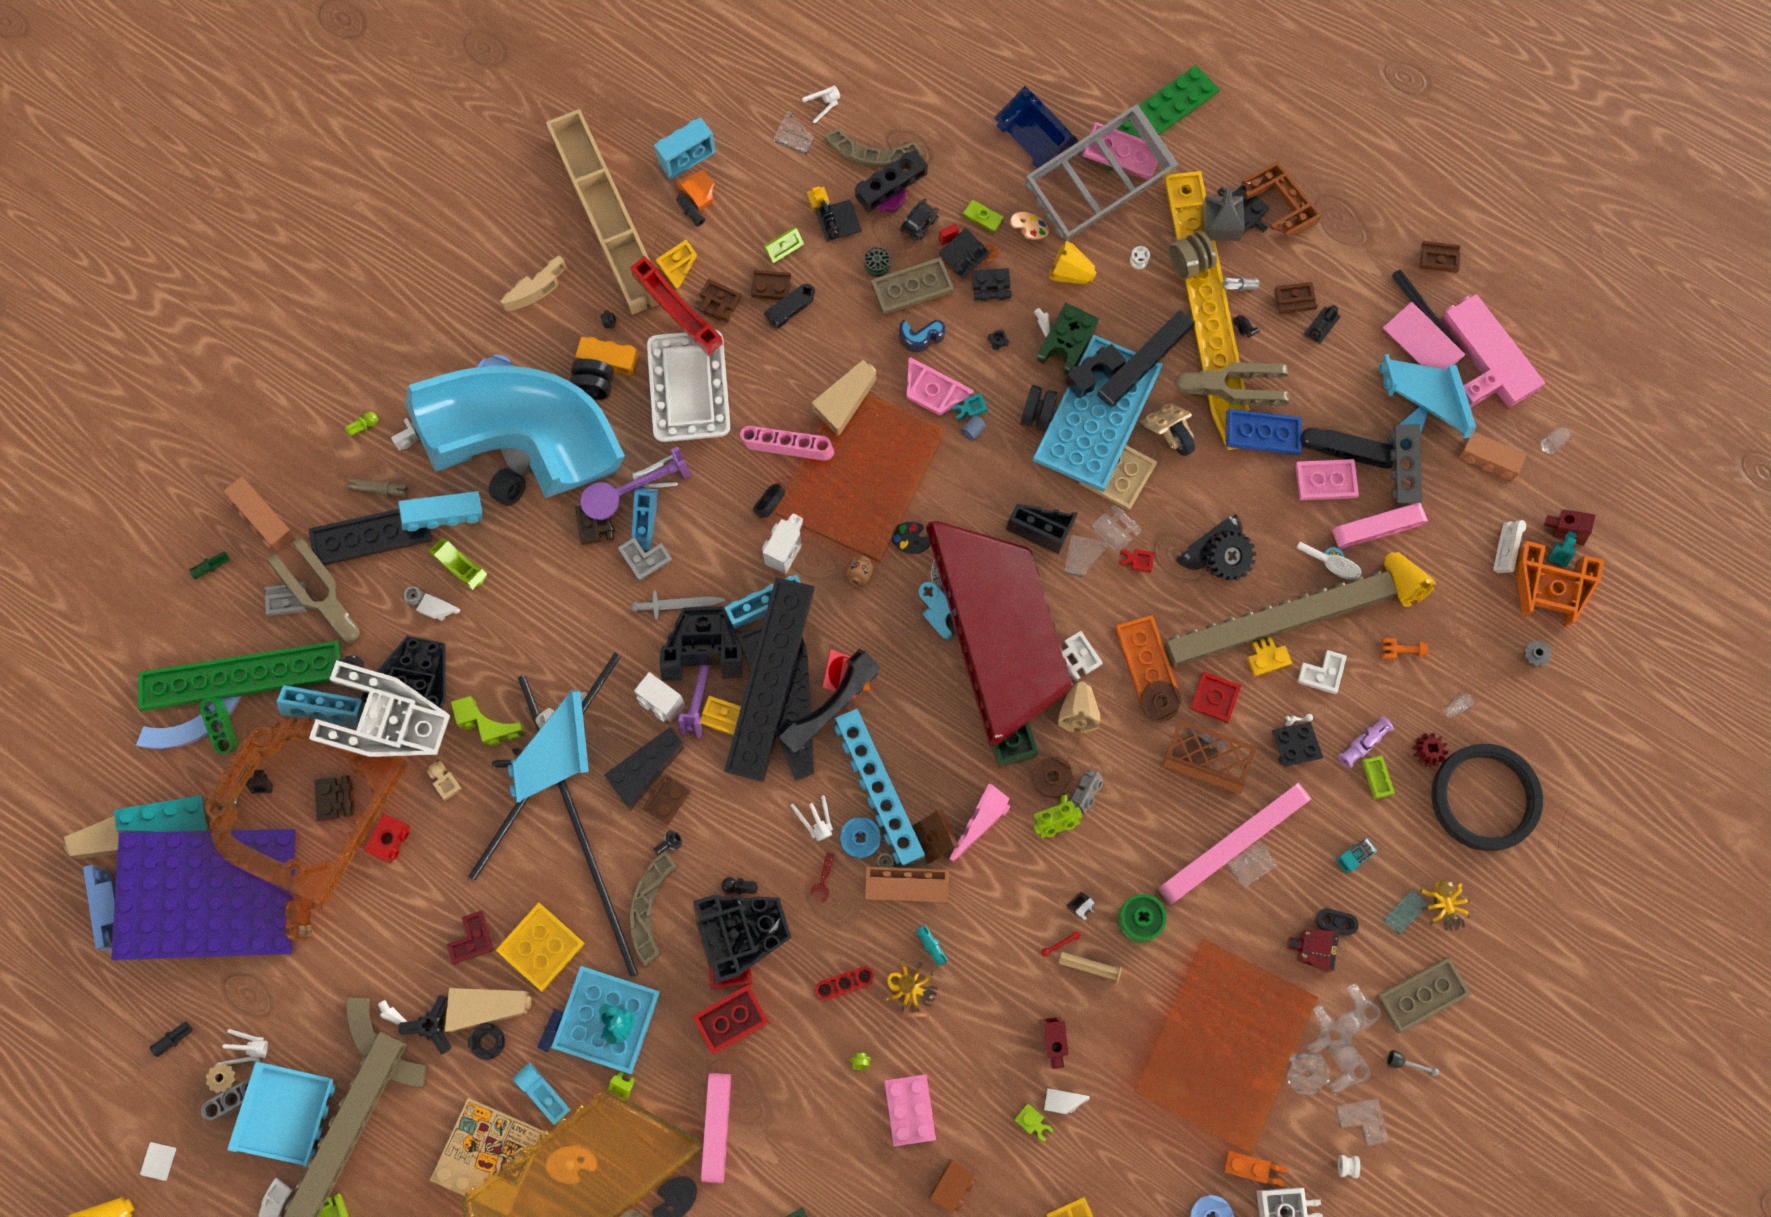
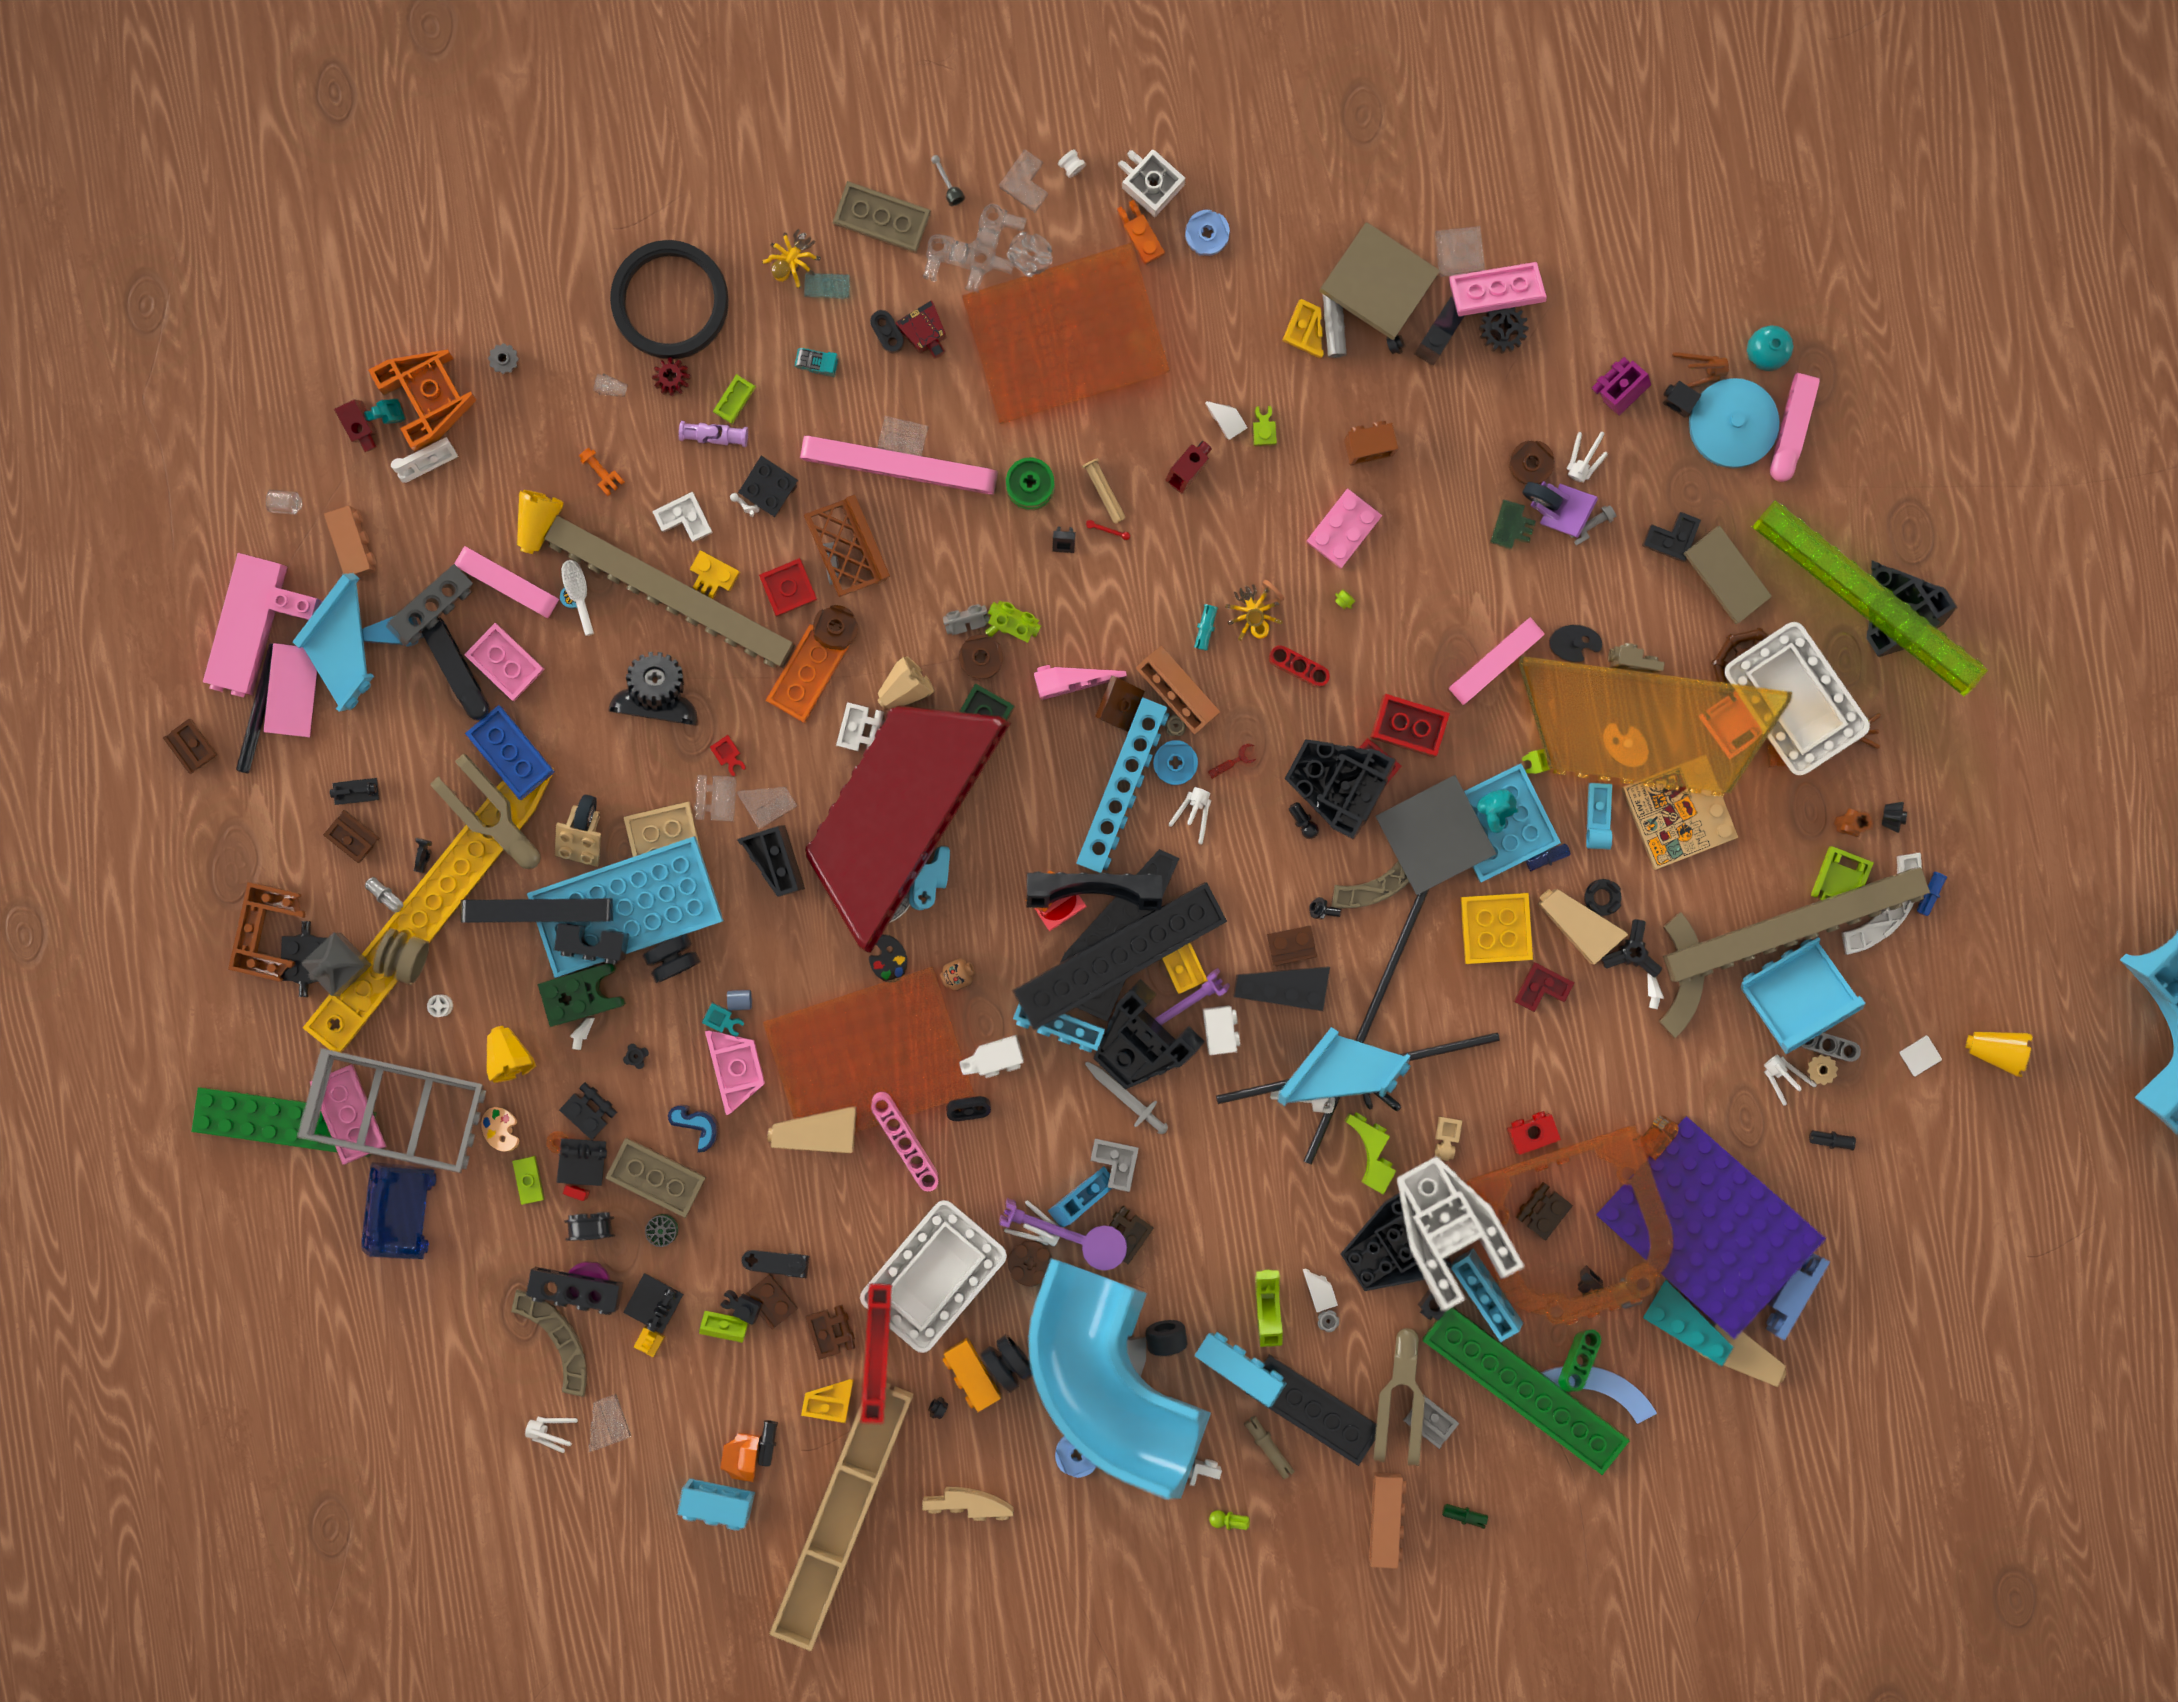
camera: 135 degrees left, 15 degrees up
(641, 965) = (1435, 835): none -> dark grey tile
(648, 451) = (1021, 1253): none -> reddish brown plate
(783, 266) = (744, 1306): none -> black plate

